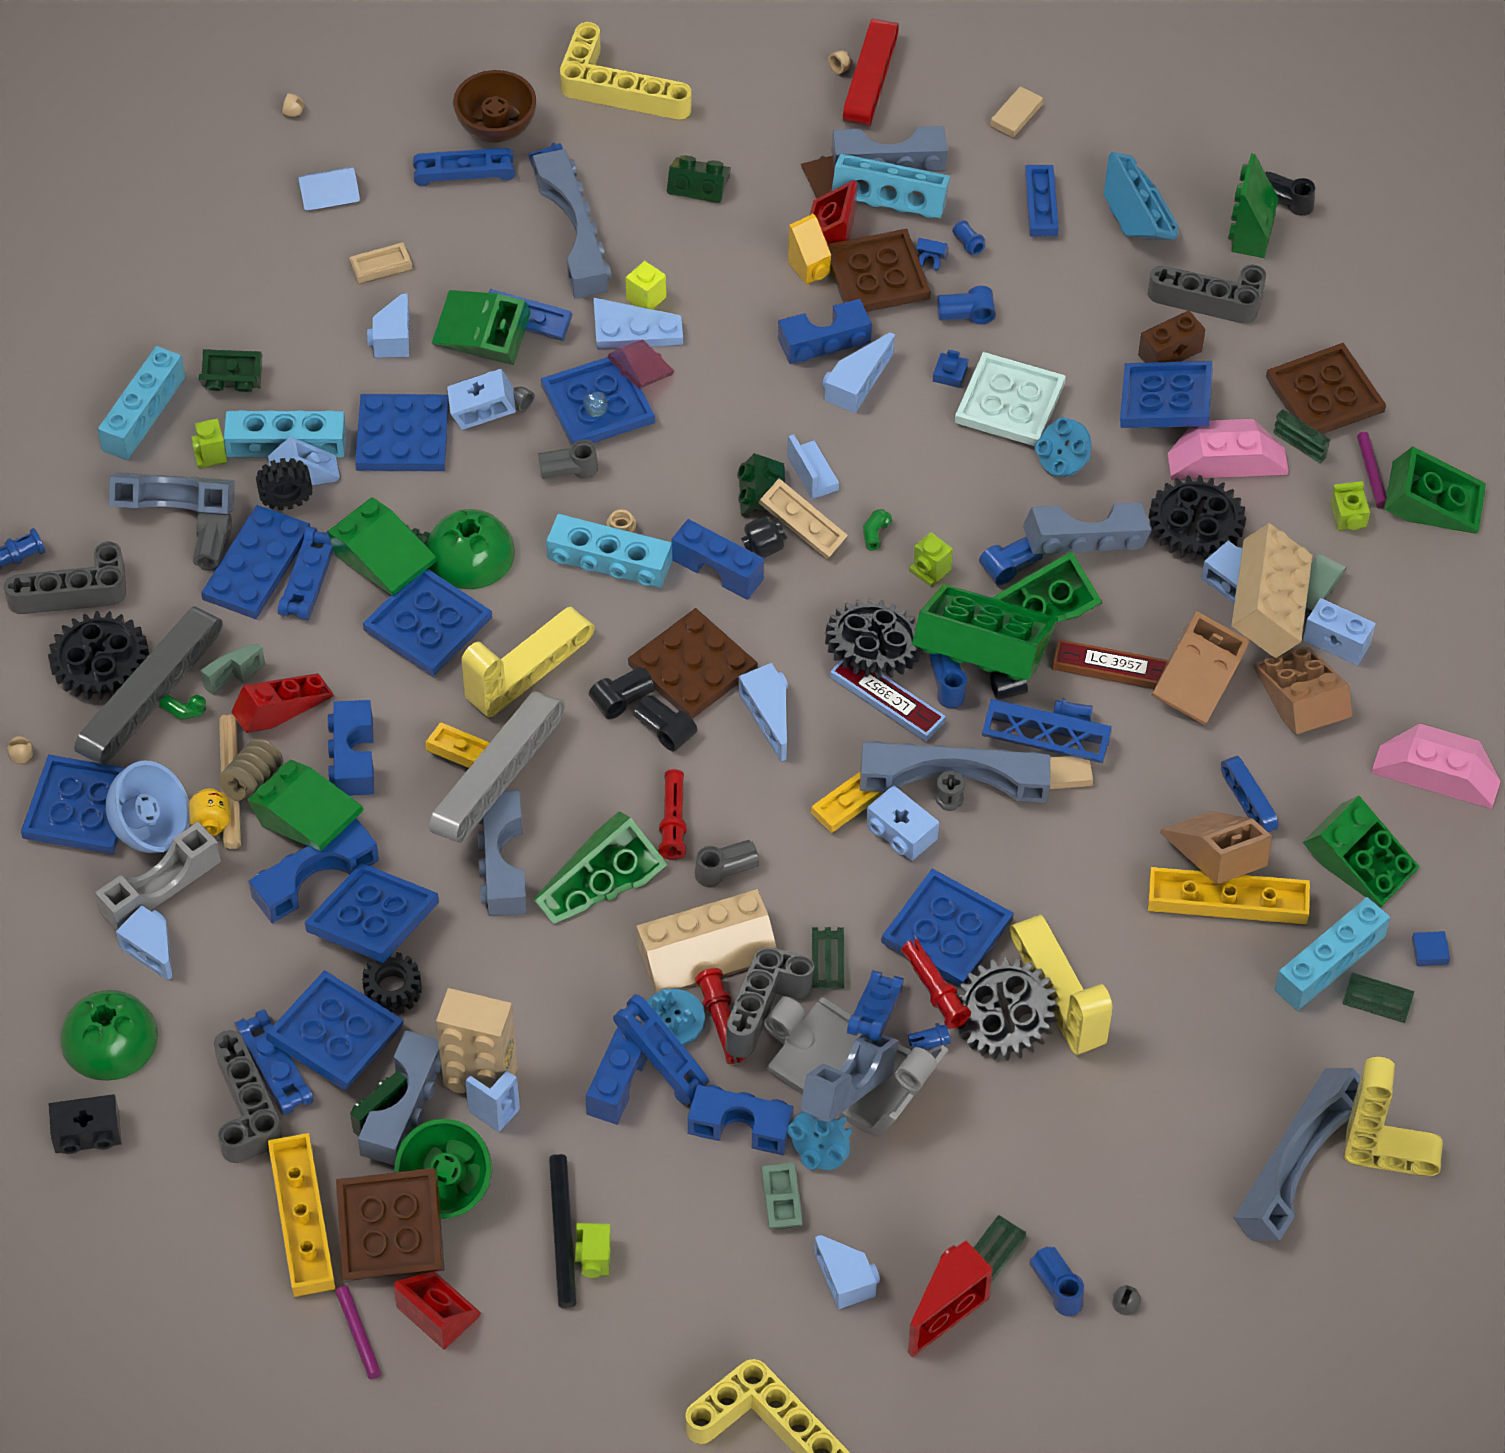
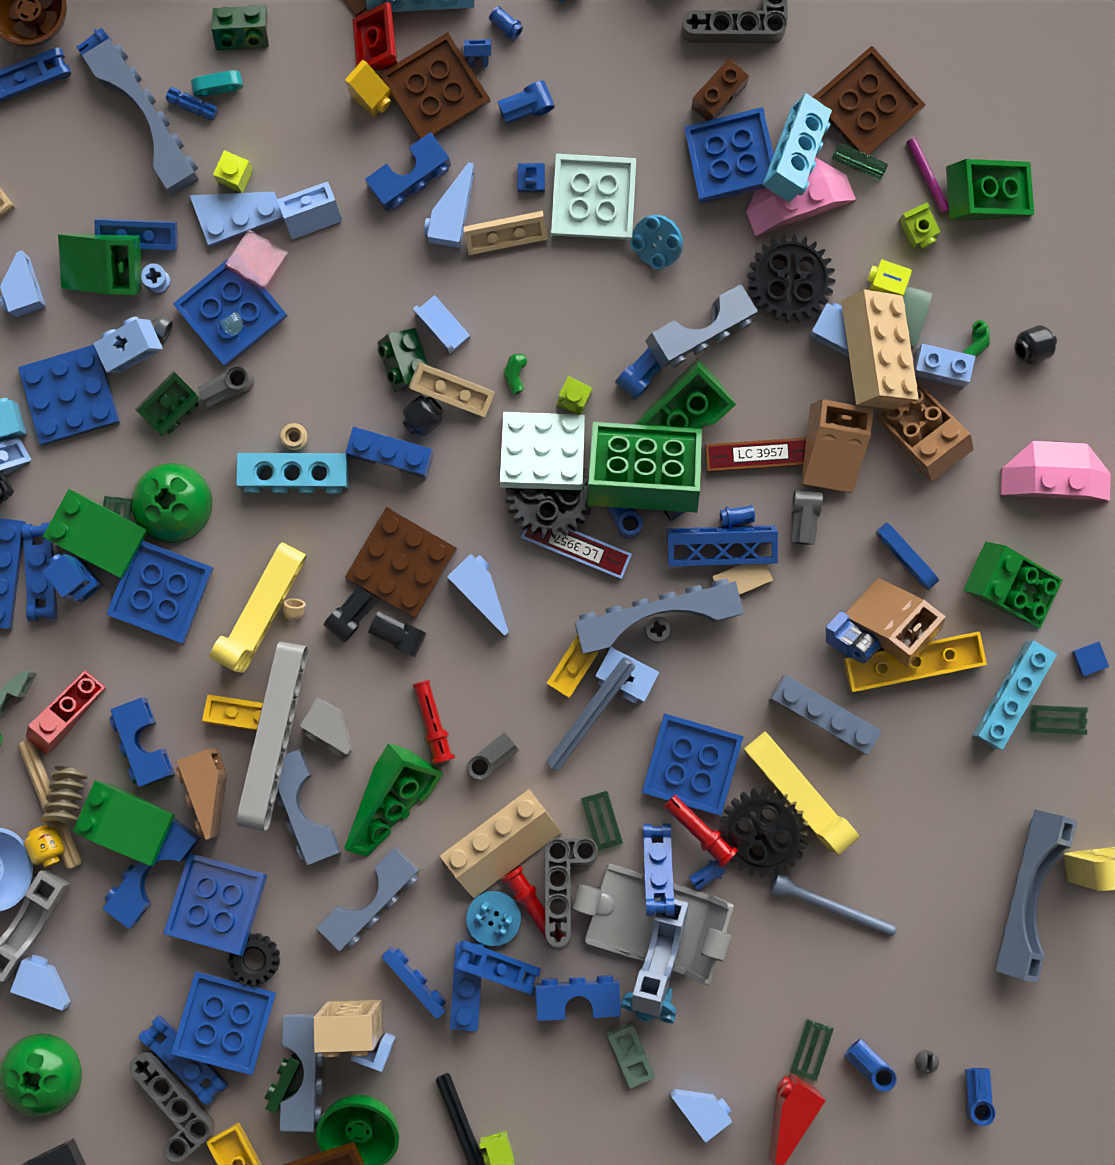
camera: 15 degrees left, 30 degrees up
(343, 569) = (72, 577): none -> blue arch
(405, 797) = (205, 783): none -> medium nougat slope
(501, 460) = (168, 404): none -> dark green bracket
(508, 975) = (343, 924): none -> sand blue arch
(531, 350) = (149, 273): none -> light blue bush
(557, 783) = (328, 724): none -> light grey slope
(562, 671) = (293, 608): none -> tan hinge
(563, 1051) = (415, 981): none -> blue plate
(625, 227) = (191, 103): none -> blue axle
(657, 215) = (216, 83): none -> teal beam
(712, 339) = (309, 210): none -> light blue panel
(849, 842) = (590, 714): none -> sand blue axle
(880, 595) = (542, 451): none -> light aqua plate
(907, 405) = (505, 233): none -> tan plate
(1011, 1072) = (783, 886): none -> sand blue piece
(1136, 936) = (825, 714): none -> sand blue arch
(1148, 725) = (806, 510): none -> dark grey piece
(1161, 848) = (851, 639): none -> blue leg
(1177, 1347) = (979, 1092): none -> blue piece
(1237, 398) = (797, 148): none -> medium azure brick
(1308, 537) = (889, 278): none -> neon yellow brick
(1388, 622) = (980, 338): none -> green arm
(1446, 639) = (1035, 344): none -> black head

